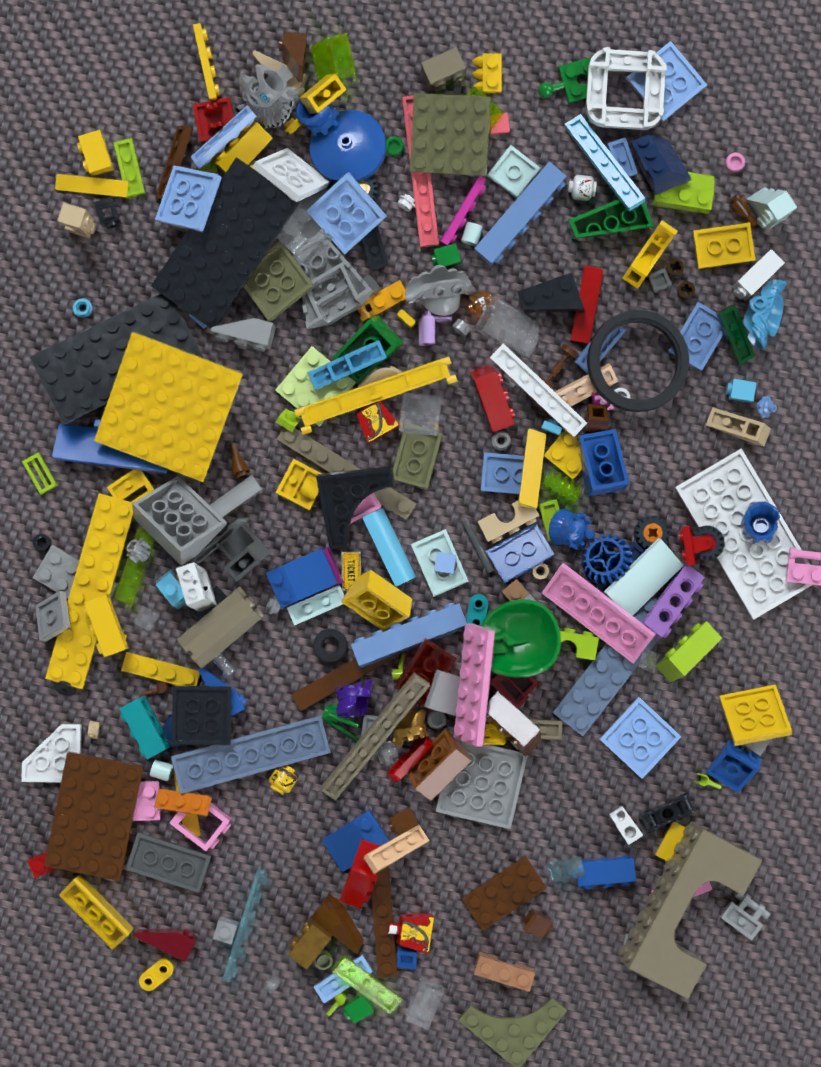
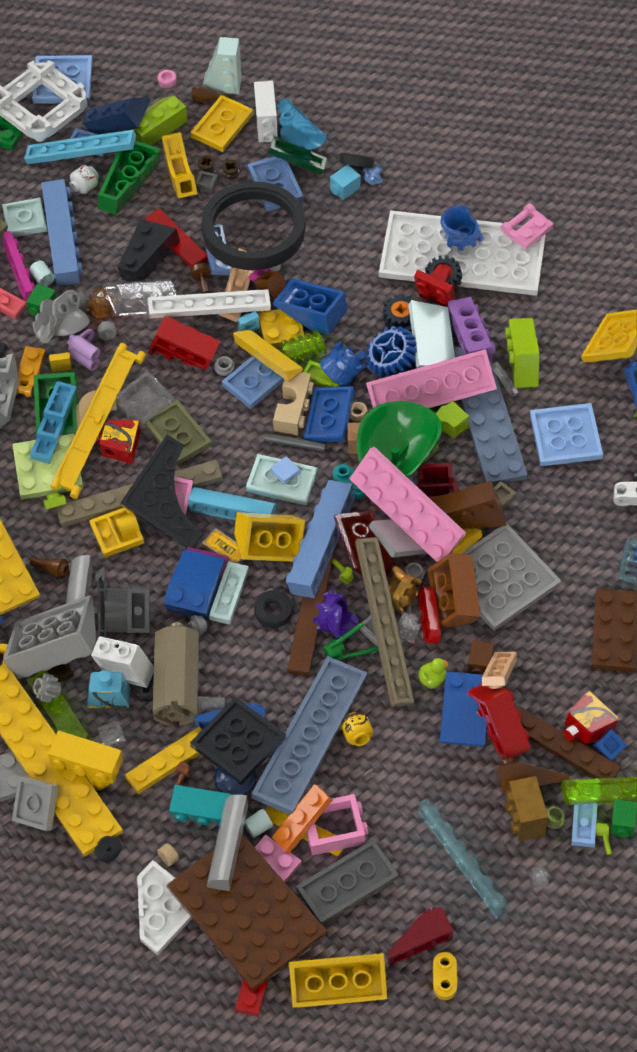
camera: 45 degrees left, 30 degrees down
(121, 771) = (228, 842): none -> light grey brick
(225, 930) = (454, 877): light grey brick -> none
(364, 798) = (433, 673): none -> lime animal
(739, 426) = (373, 200): tan slope -> none
(771, 392) = (356, 160): none -> black tyre

